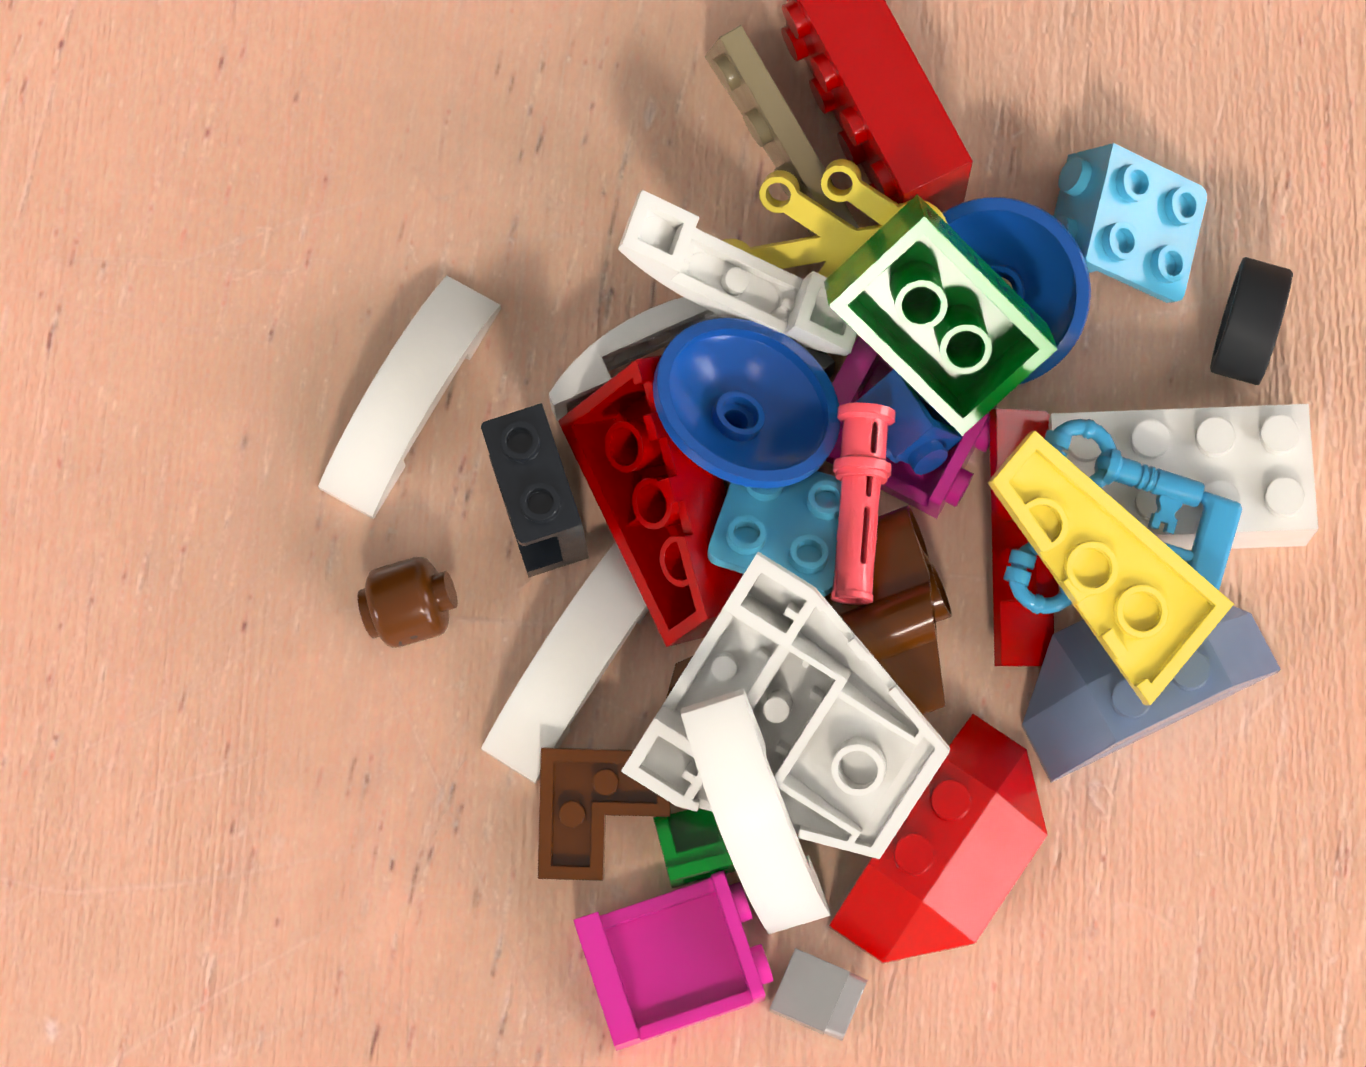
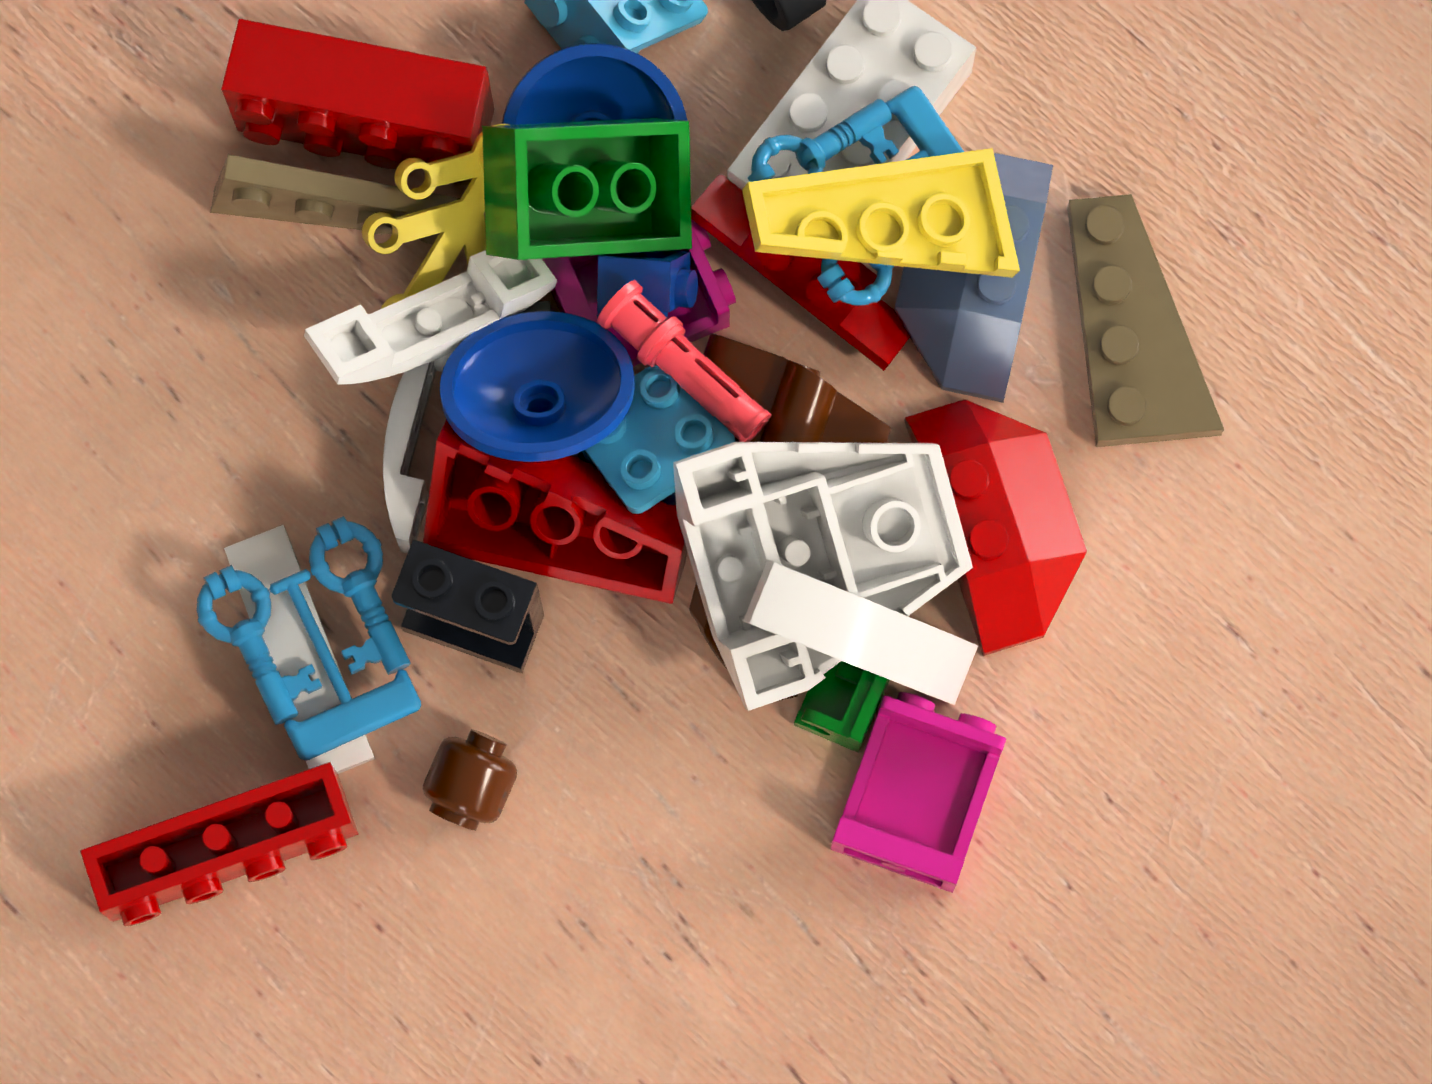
camera: 55 degrees left, 0 degrees up
(208, 452) = (220, 843): none -> red brick
(383, 473) = (353, 716): none -> dark azure piece
(567, 667) = (623, 694): white slope -> none
(575, 797) = (733, 765): reddish brown plate -> none
(818, 995) = (1031, 703): light grey piece -> none
(1184, 851) = (1135, 345): none -> dark tan wing

